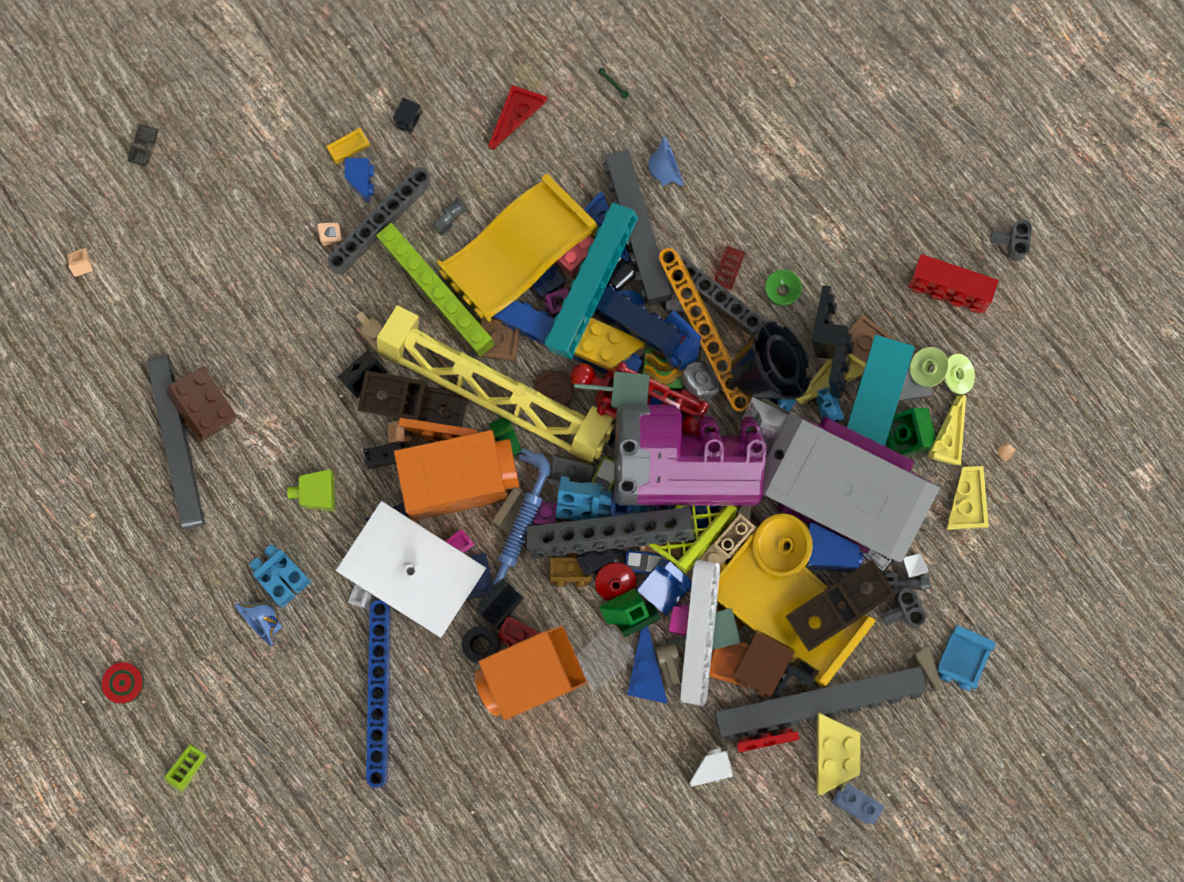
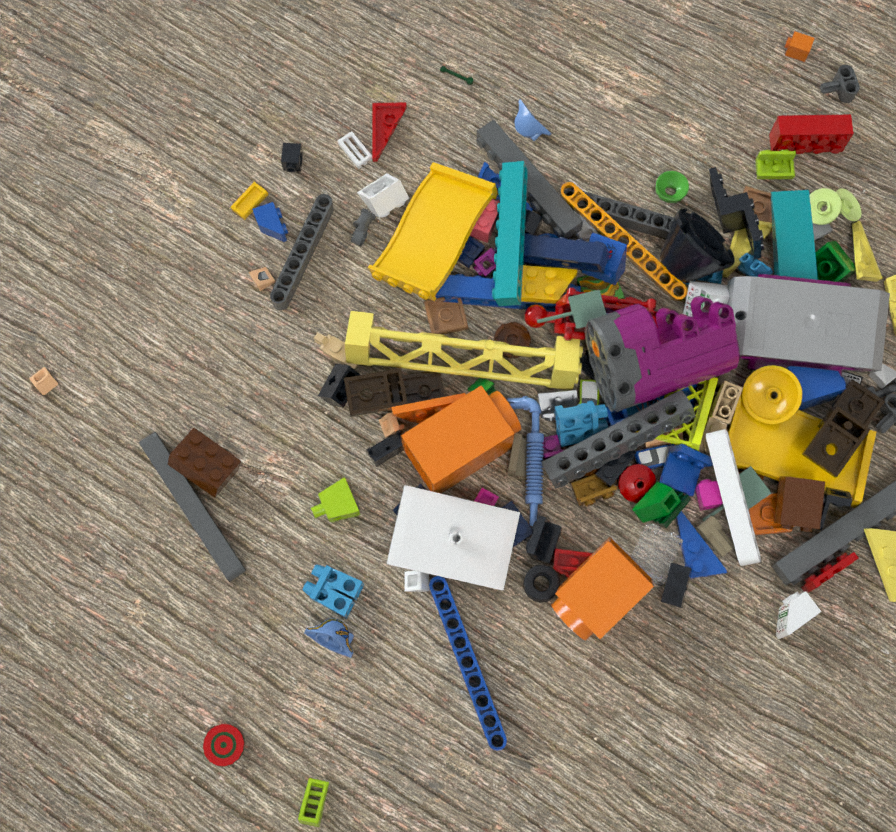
camera: 25 degrees left, 5 degrees down
(143, 145) = (65, 261): clear smoke slope -> none
(435, 290) = (376, 291): lime brick -> none
(480, 143) = (362, 160): none -> white tile
(484, 189) = (384, 195): none -> white slope
(609, 697) = (676, 585): none -> black brick
(700, 380) = (636, 285): light grey tile -> none
(733, 251) = (618, 173): clear red slope -> none
(903, 303) = (775, 164): none -> lime bracket
(988, 180) = (799, 46): none -> orange brick

